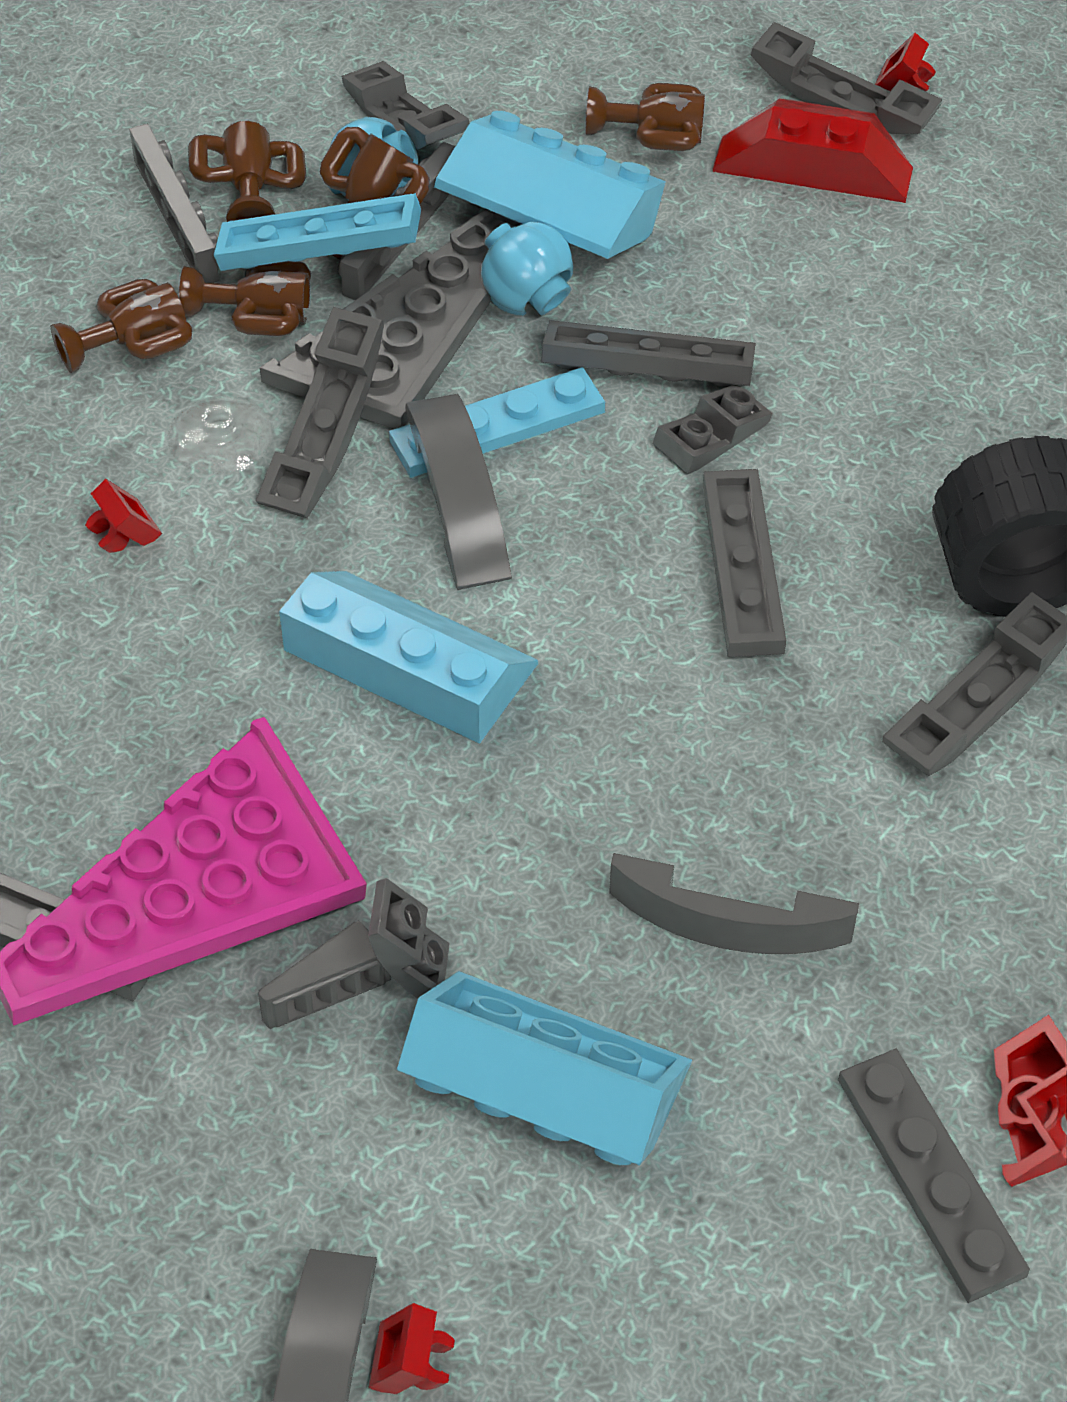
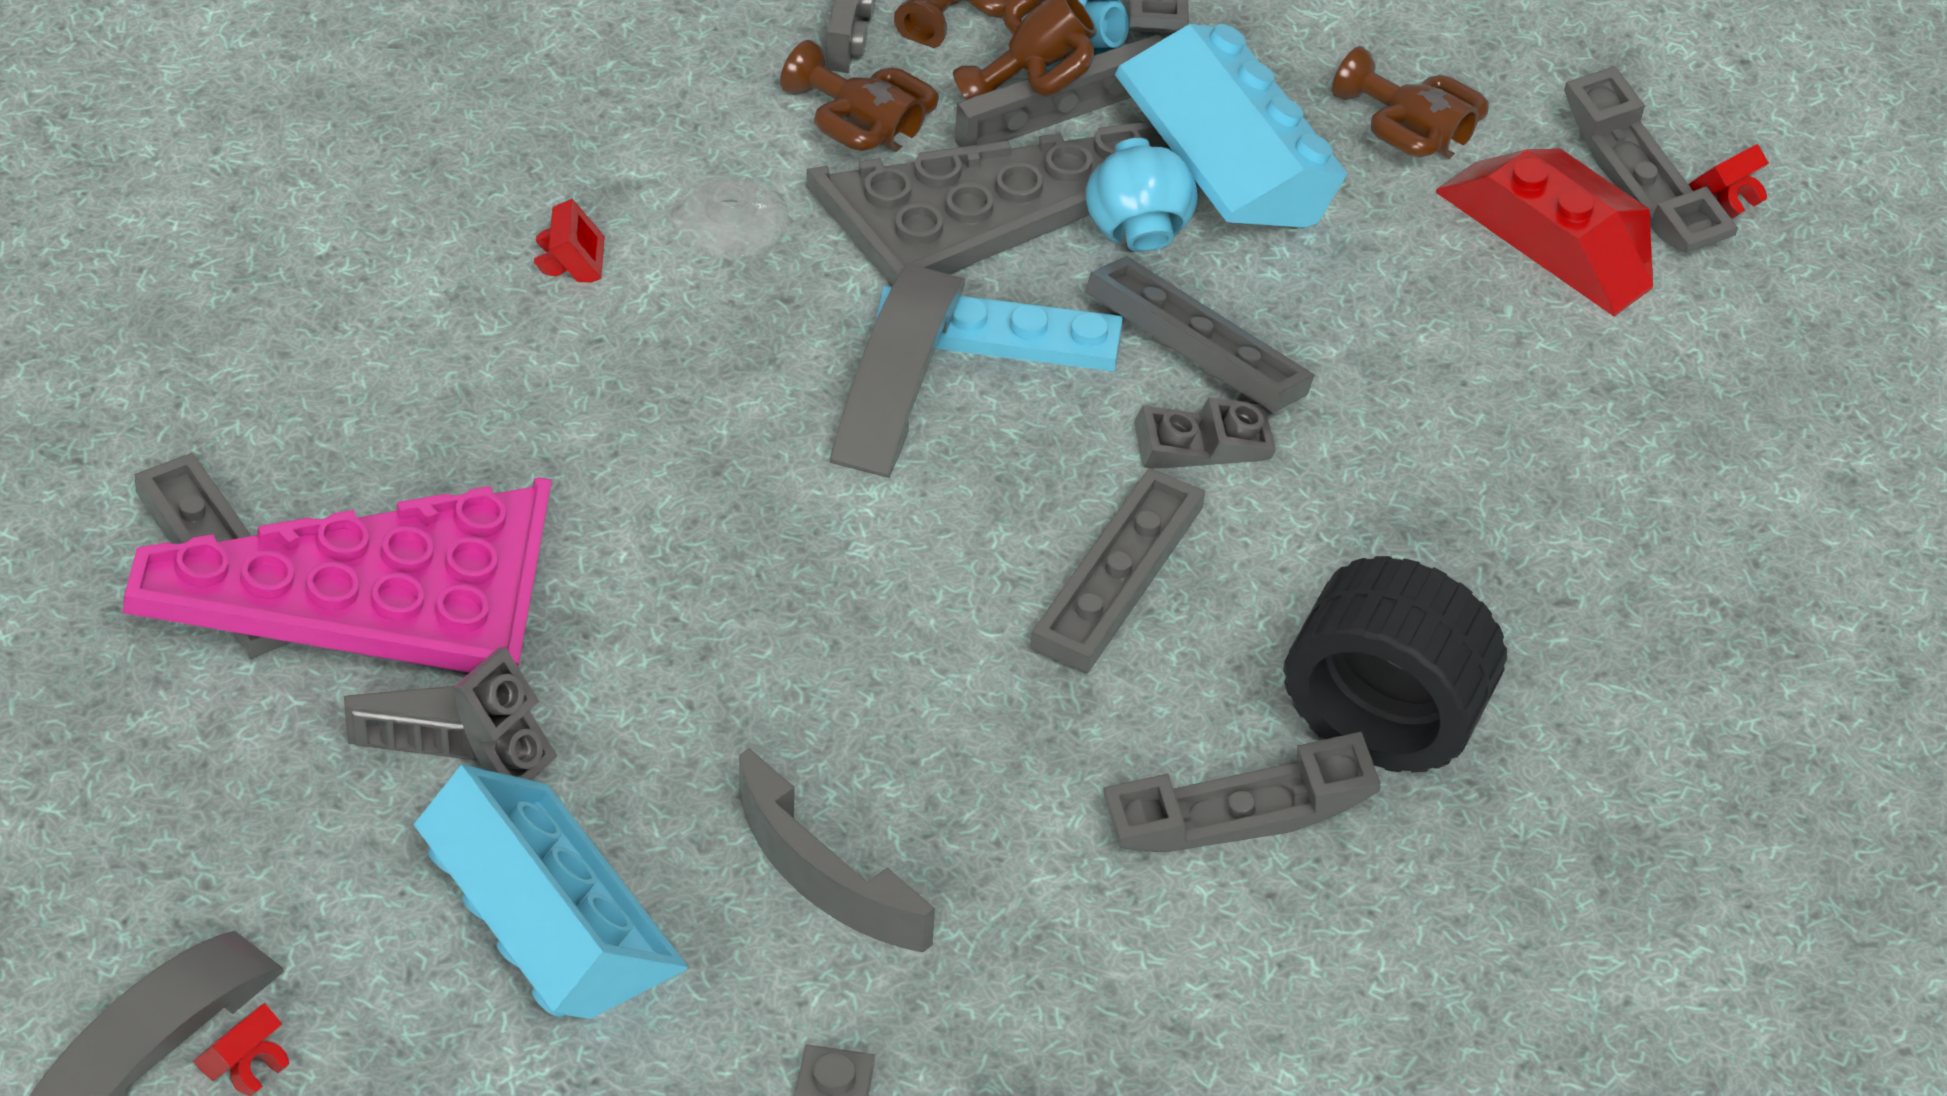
camera: 30 degrees right, 5 degrees down
(137, 315) = (735, 75): reddish brown piece -> none
(318, 232) = (954, 64): medium azure plate -> none
(328, 414) = (830, 246): dark grey slope -> none
(403, 652) = (728, 486): medium azure slope -> none

